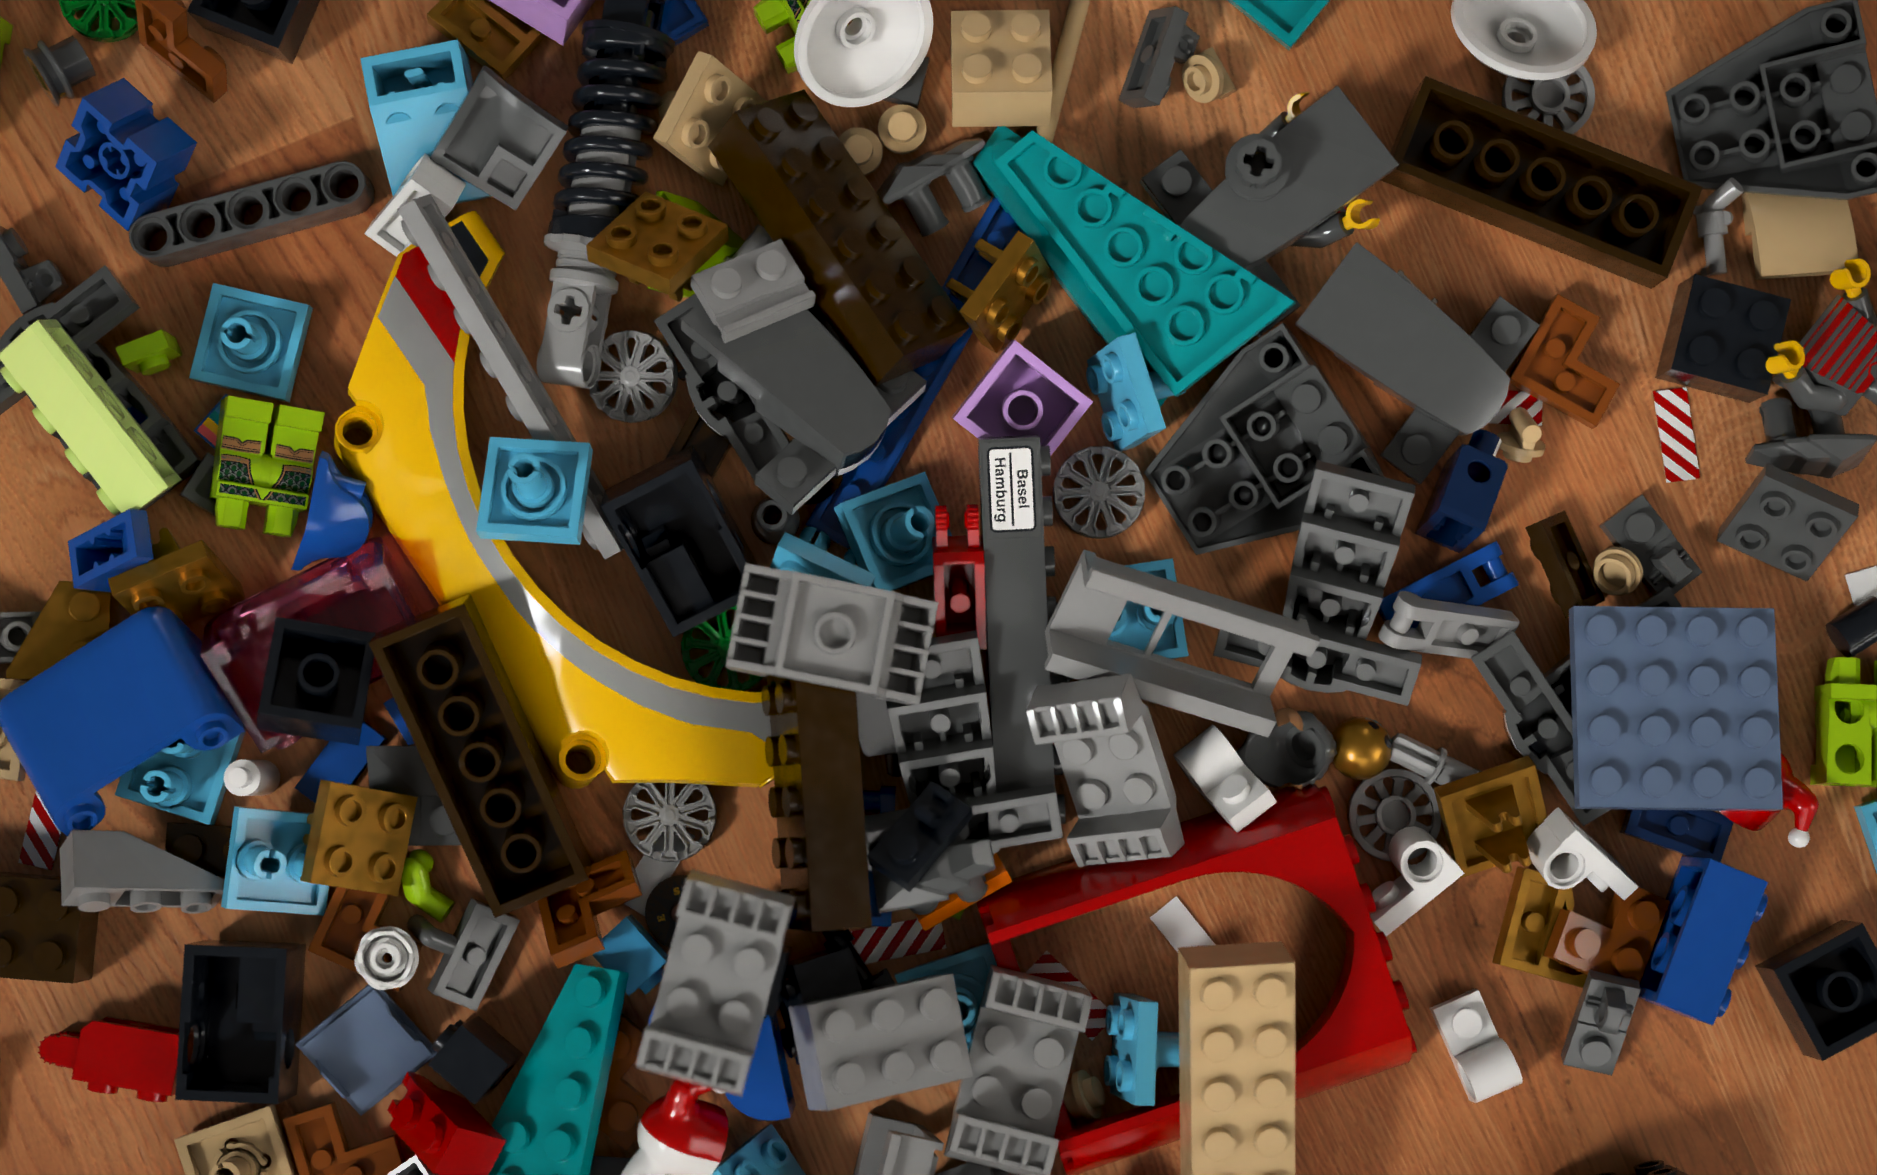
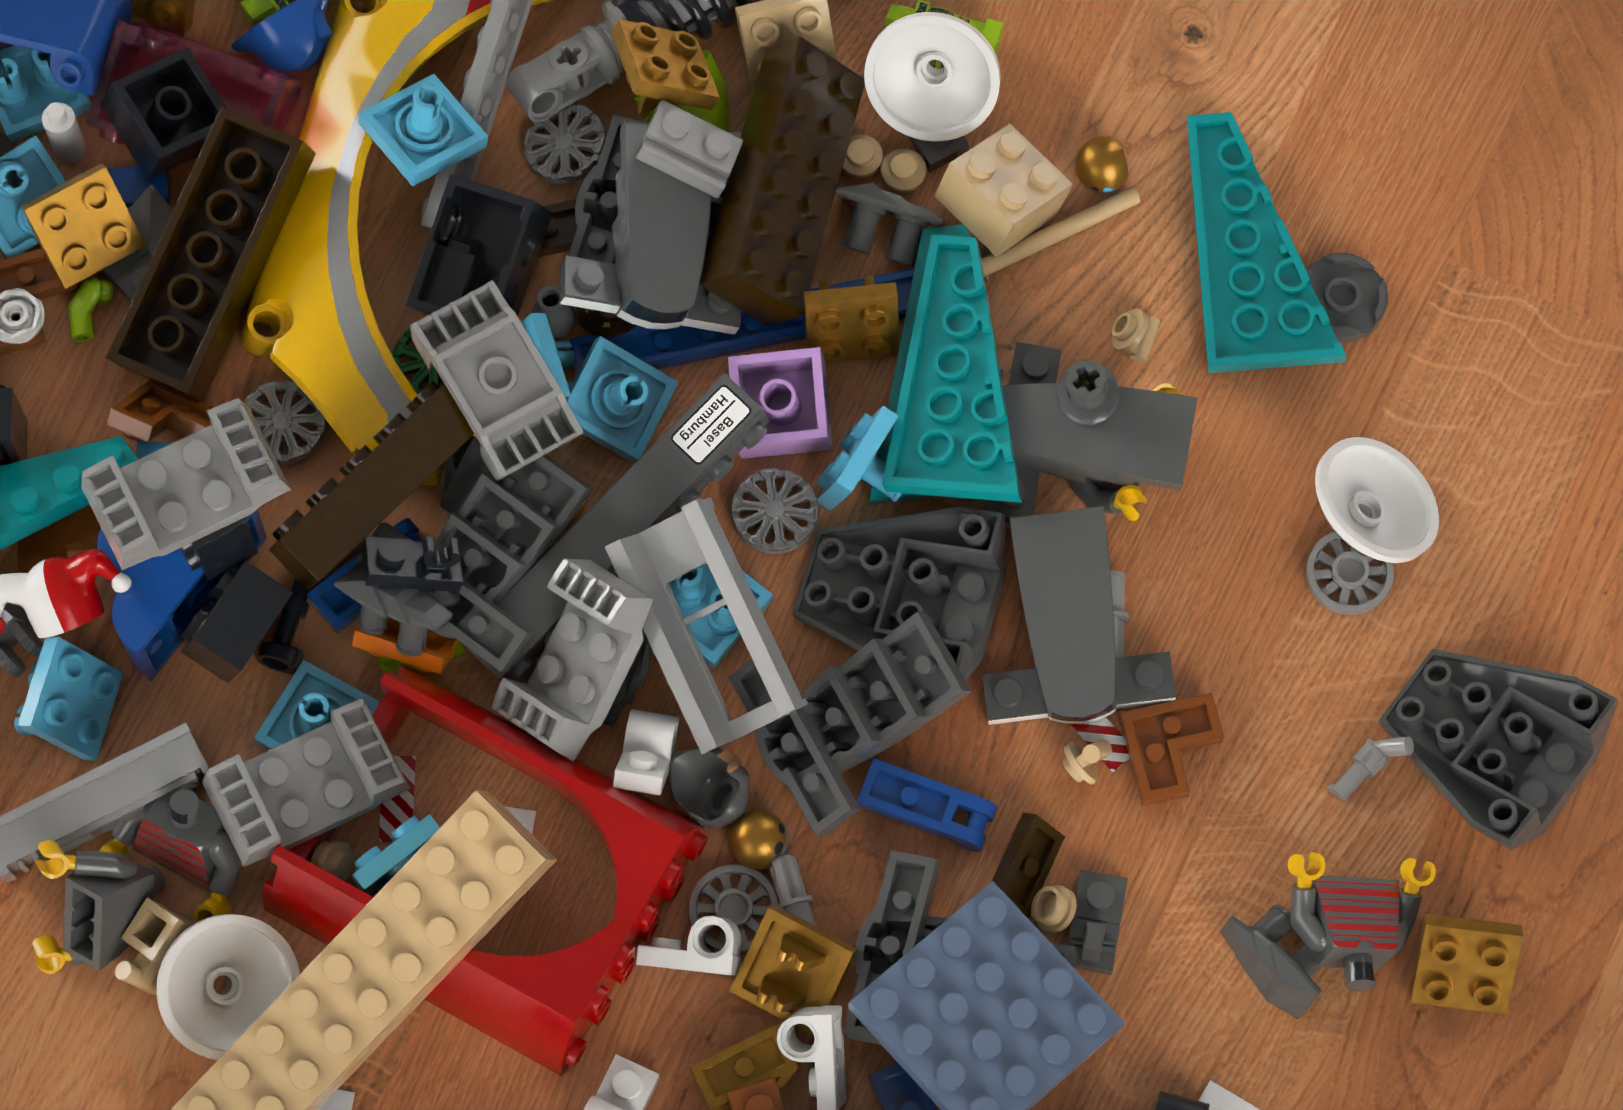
camera: 50 degrees right, 15 degrees down
(469, 954) = (66, 373): dark grey plate -> none
(880, 1042) = (244, 658): light grey brick -> none
(897, 941) = (332, 650): sticker -> none
(959, 576) = (619, 447): red hinge -> none
(1161, 43) = (1132, 283): dark grey hinge -> none
(1444, 626) = (895, 810): light grey plate -> none
(1464, 493) = (1005, 748): dark blue torso -> none
(1542, 183) = (1276, 610): dark brown brick -> none
(1676, 435) = (1196, 871): sticker -> none
(1722, 338) = (1290, 820): black brick -> none
(1787, 522) = (1200, 989): dark grey plate -> none
(1798, 235) = (1419, 824): tan slope -> none

